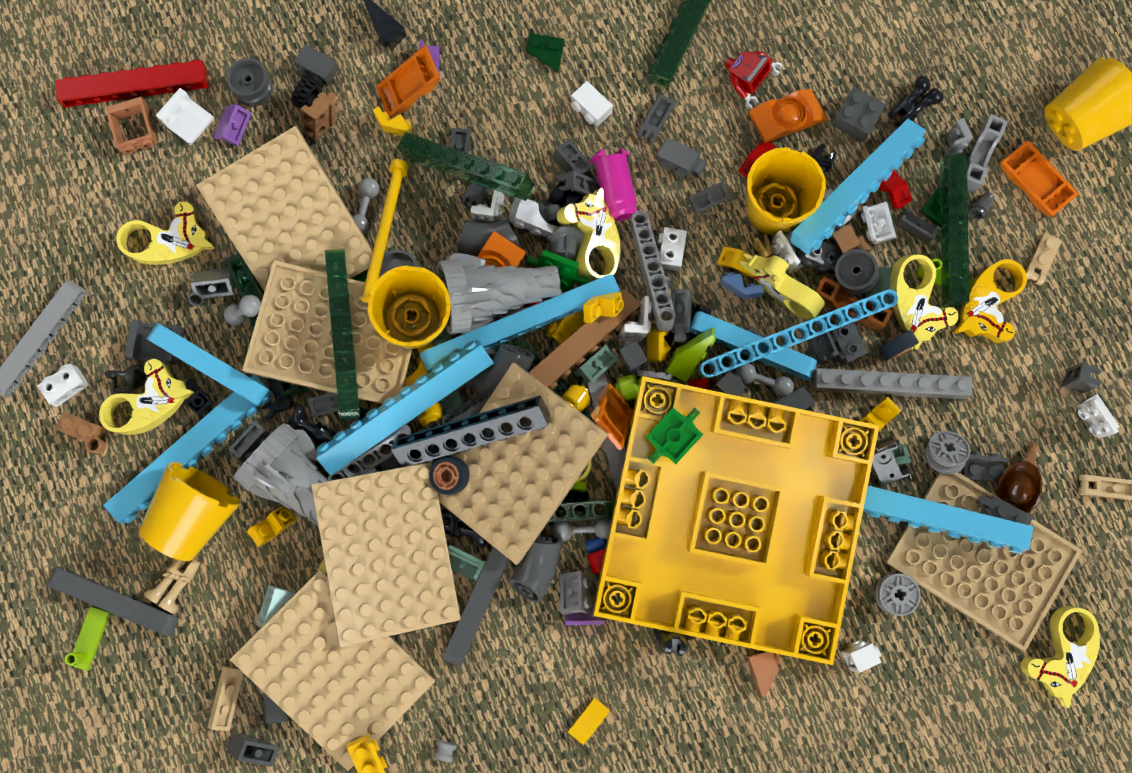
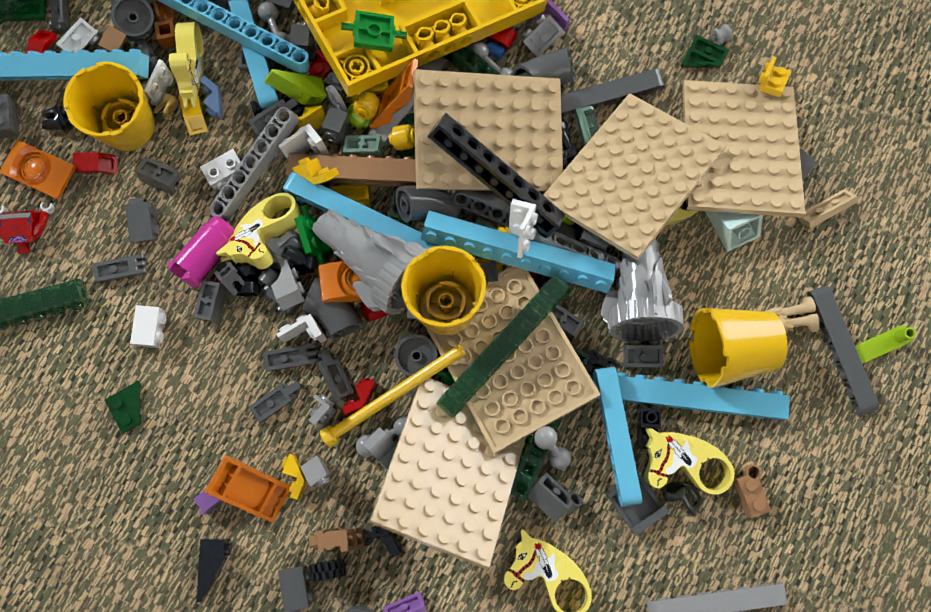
camera: 130 degrees left, 0 degrees up
(62, 384) = (732, 543): white brick -> none
(252, 750) = (842, 161): dark grey slope -> none
(272, 526) = (688, 285): yellow slope -> none
(318, 432) = (590, 304): black piece -> none
(354, 193) = (381, 446): none -> light grey brick
(379, 137) = (316, 472): none -> light grey slope
(408, 216) = (364, 390): none -> red slope
(410, 371) = (490, 271): none -> black tile
(419, 426) = (522, 224): none -> white bracket
(421, 179) = (322, 414): none -> light grey bracket
(439, 205) = (334, 375): none -> dark grey hinge
(442, 720) = (704, 54): none -> dark green wing
(459, 475) = (546, 167): wheel -> none
(466, 166) = (285, 371): clear green brick -> none
(544, 243) = (303, 263): none -> black bar
(626, 392) = (366, 105): none -> yellow head

